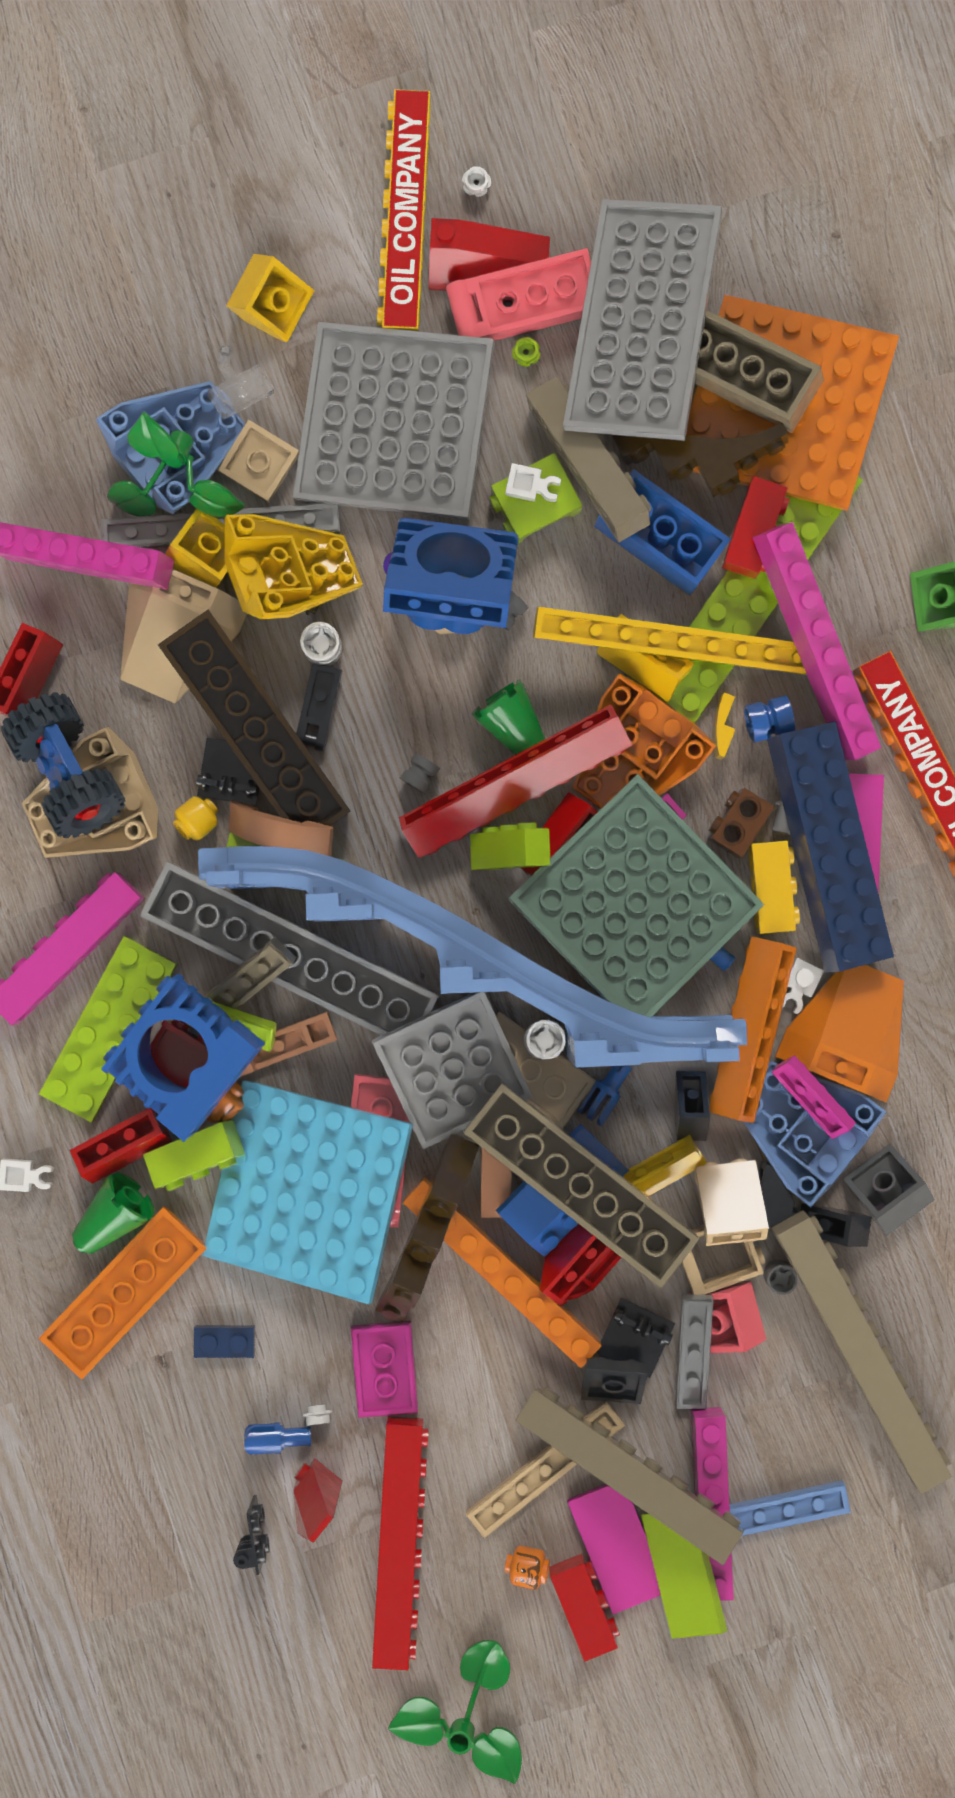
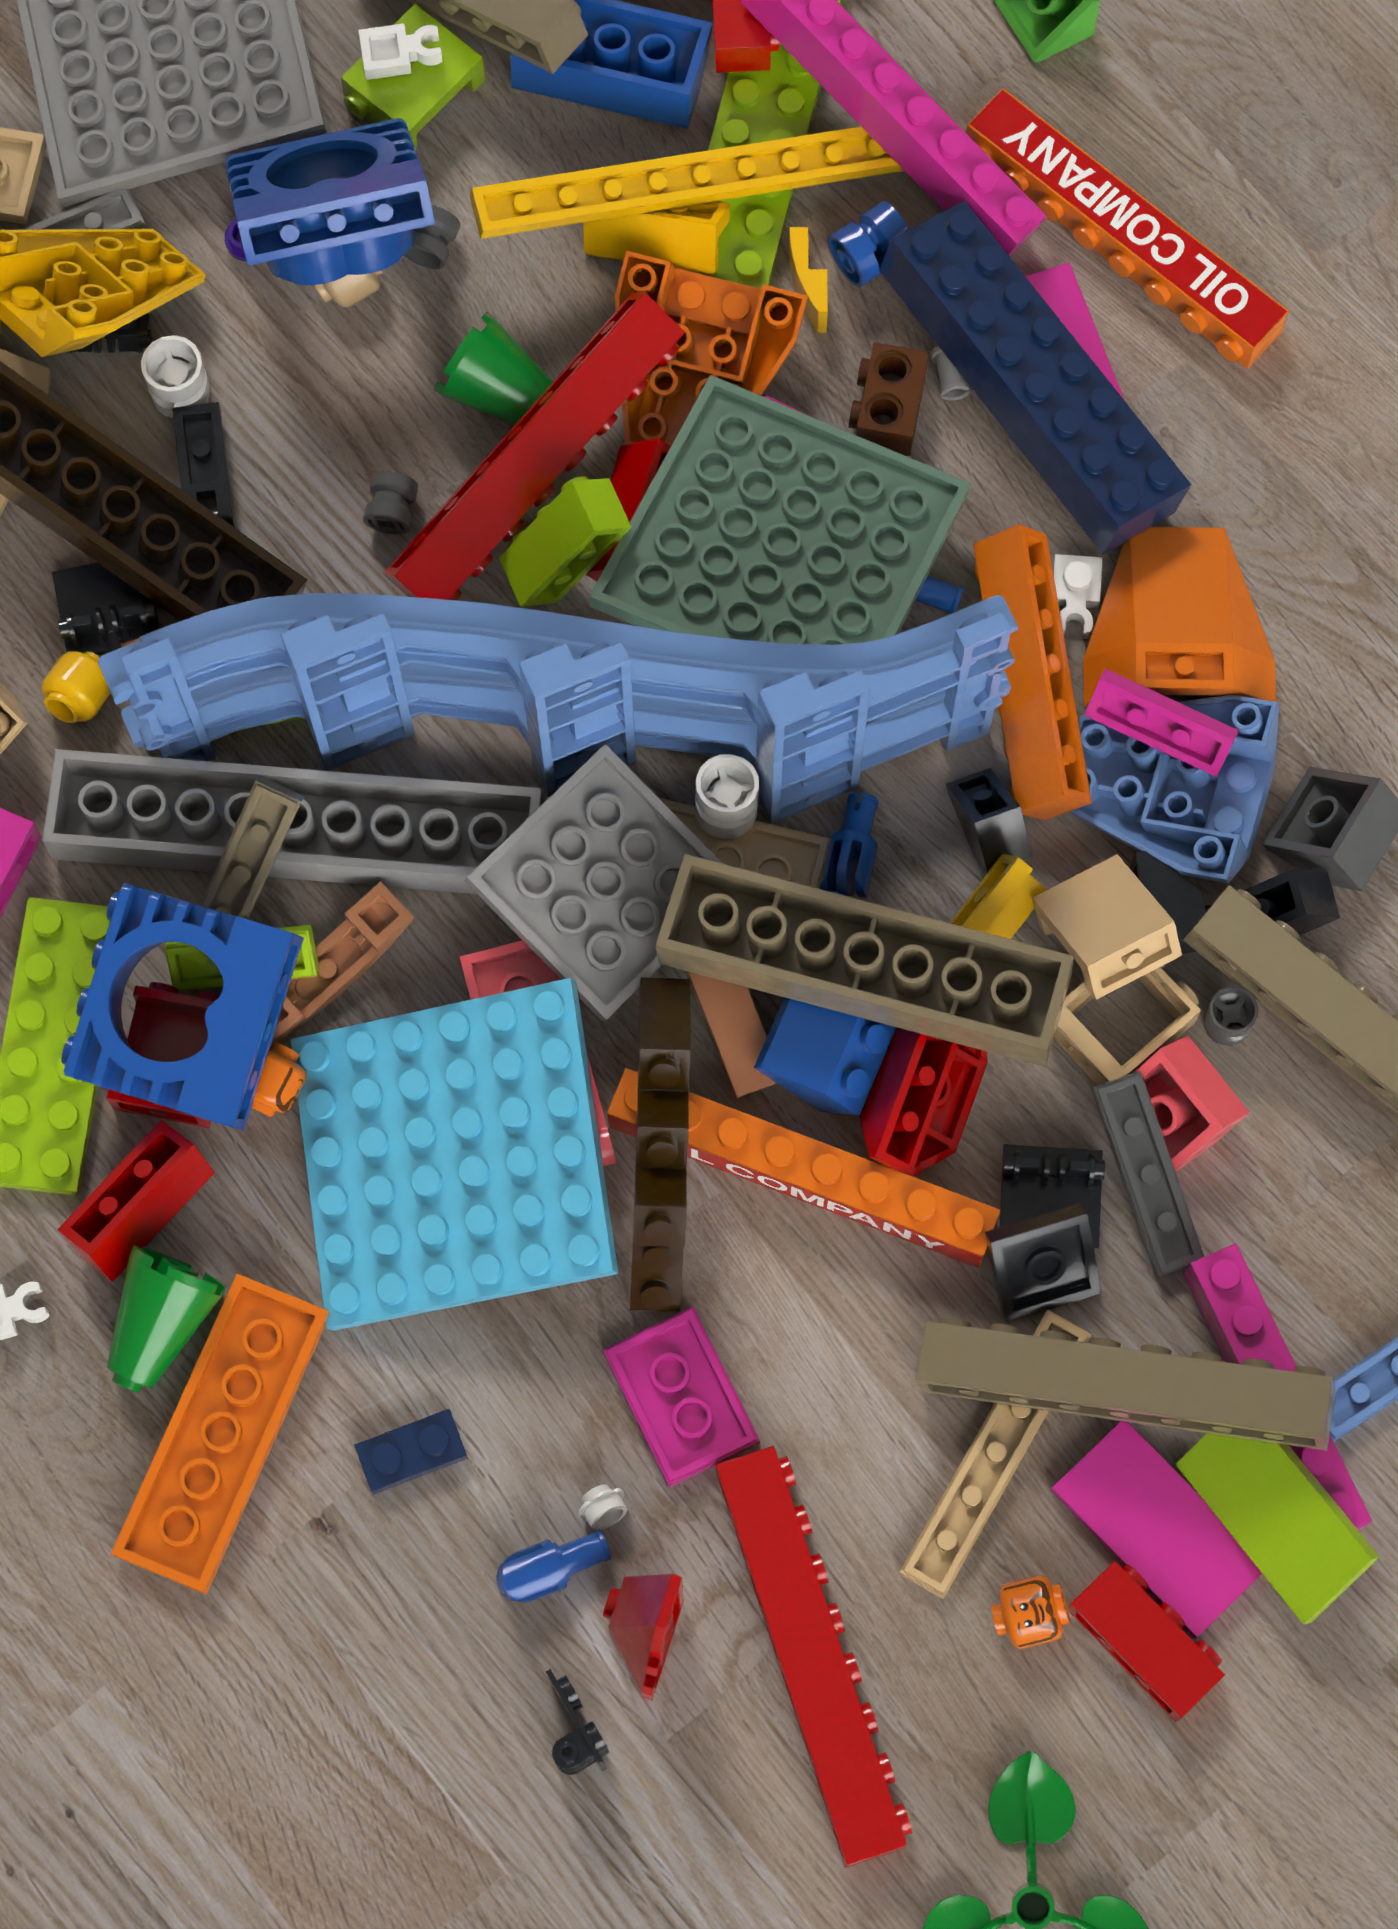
camera: 20 degrees left, 15 degrees down
(194, 1157) = (256, 1170): lime brick -> none
(773, 886) = (961, 444): yellow brick -> none

